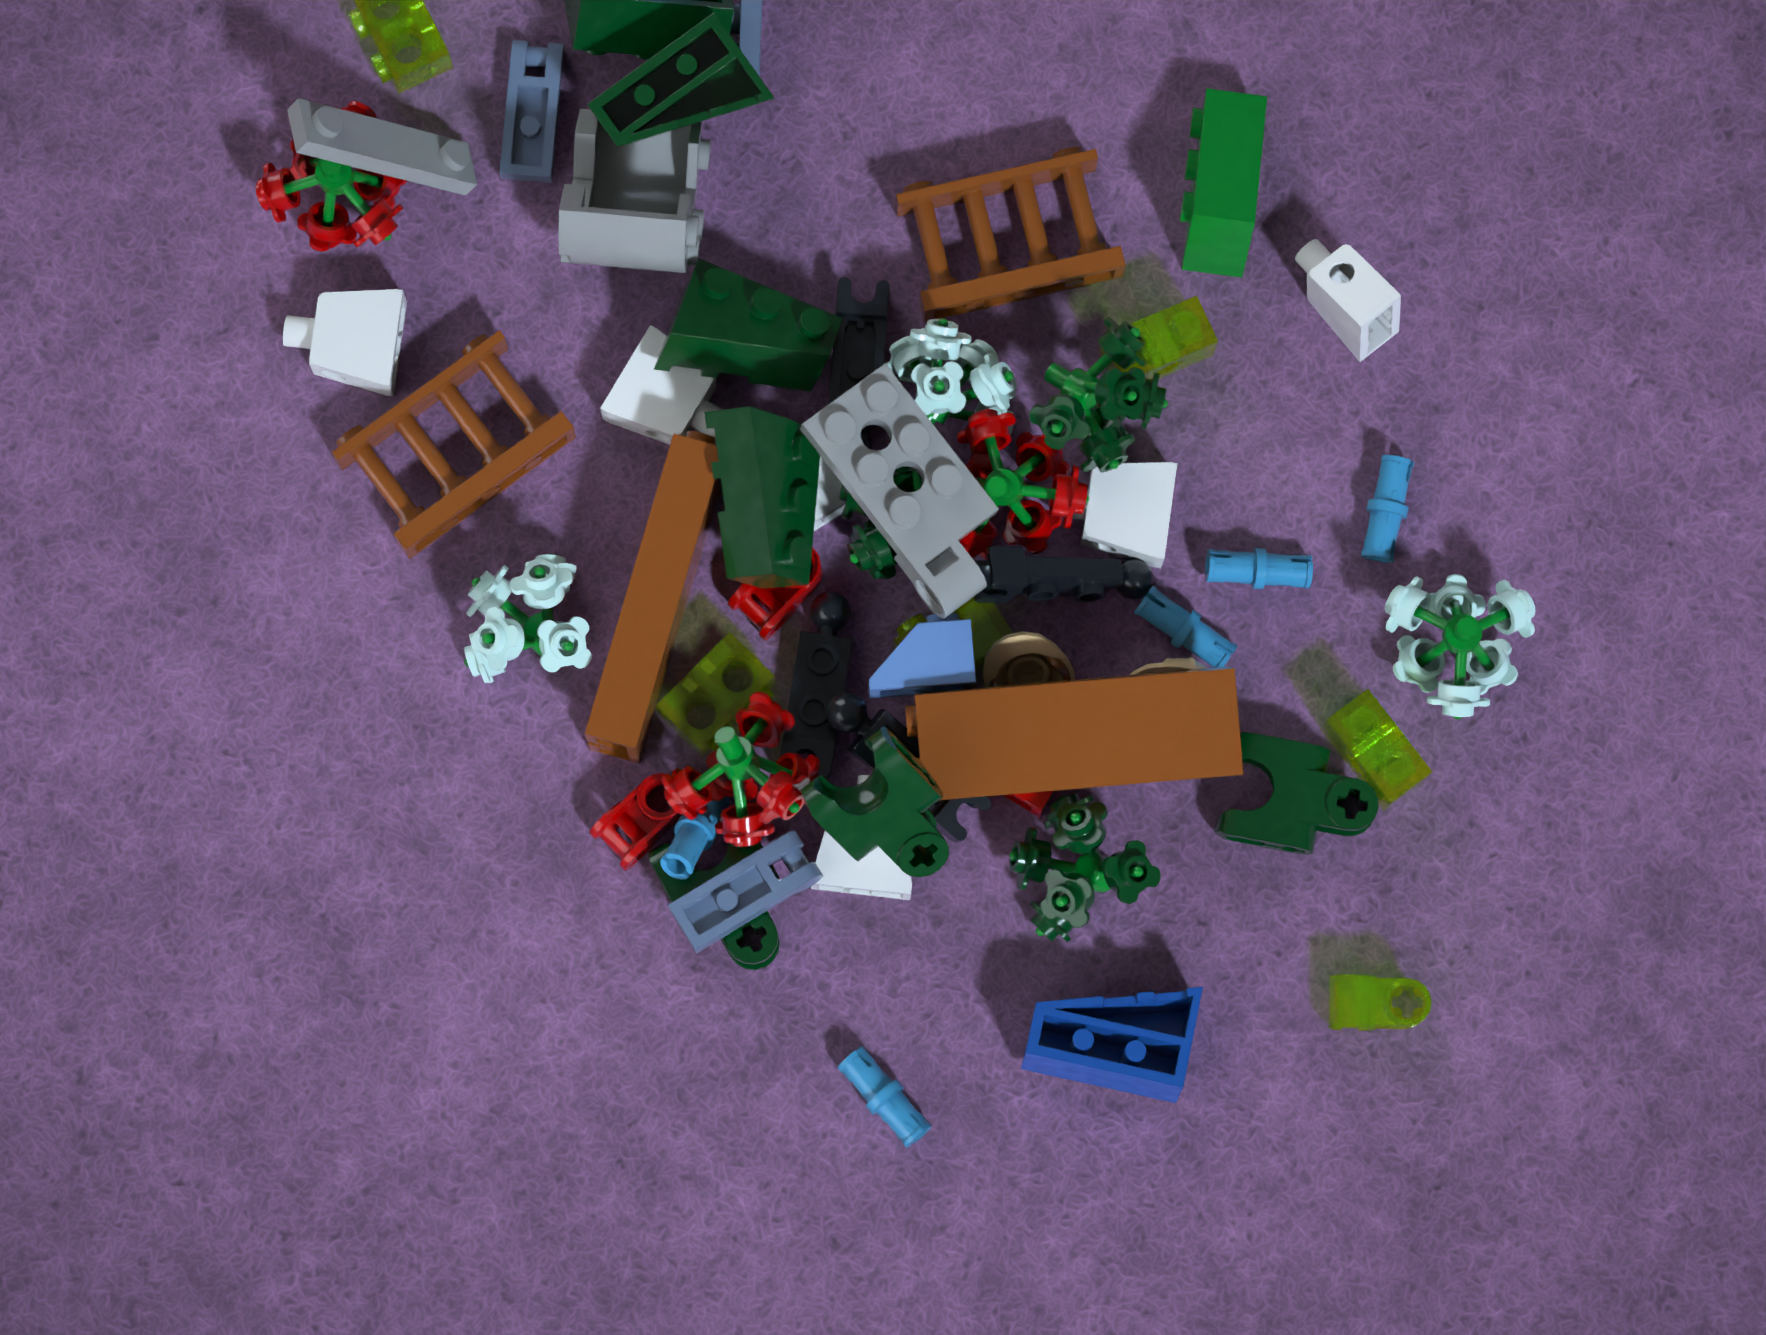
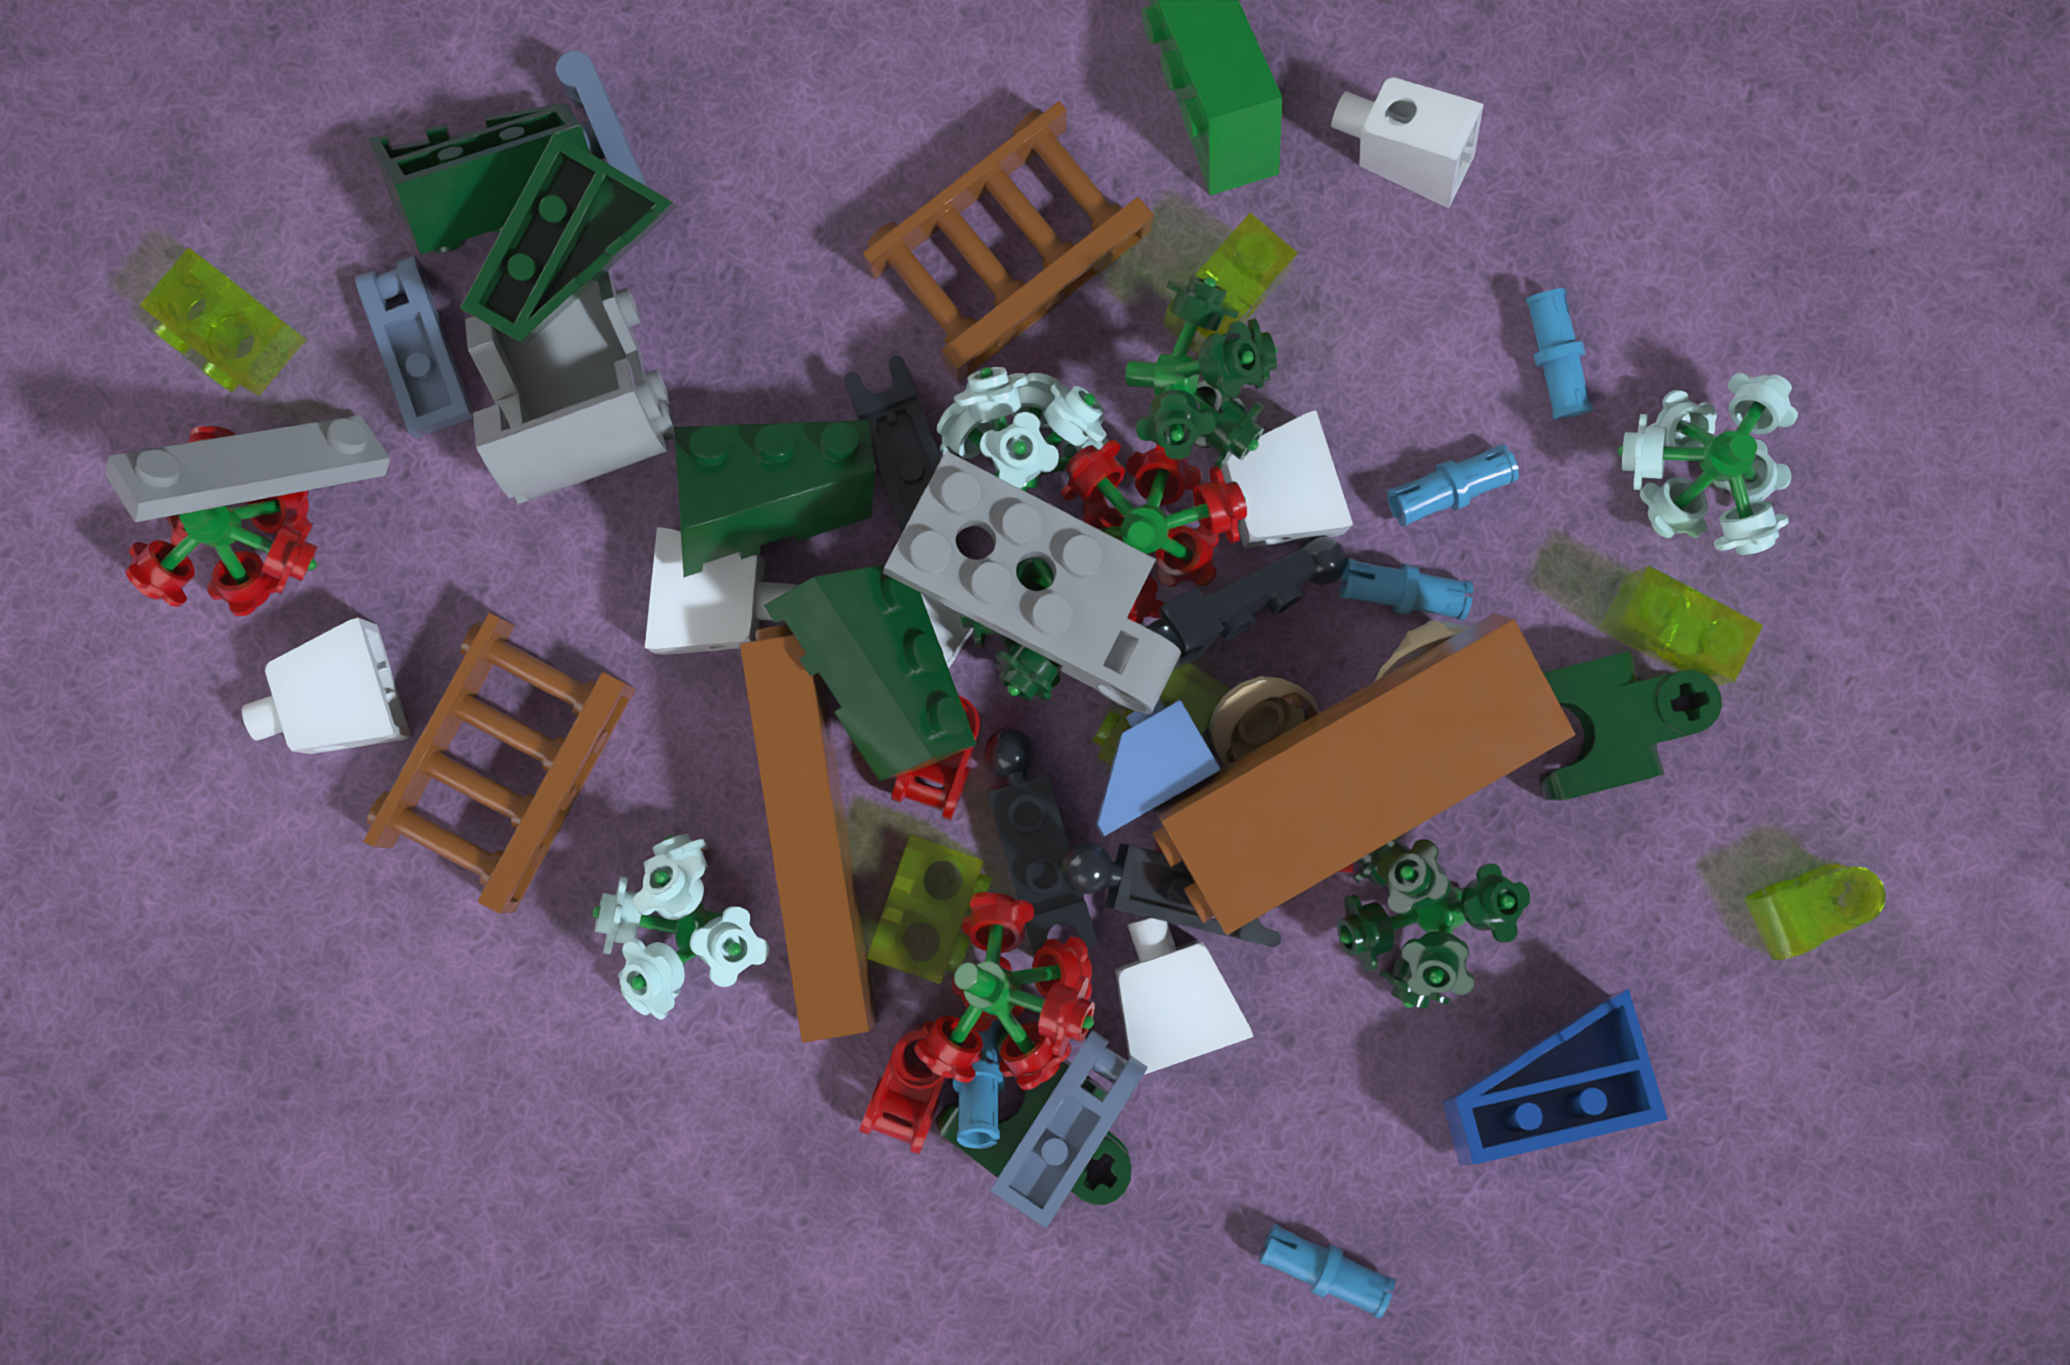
camera: 25 degrees left, 5 degrees up
(884, 809) = (1190, 975): dark green piece -> none

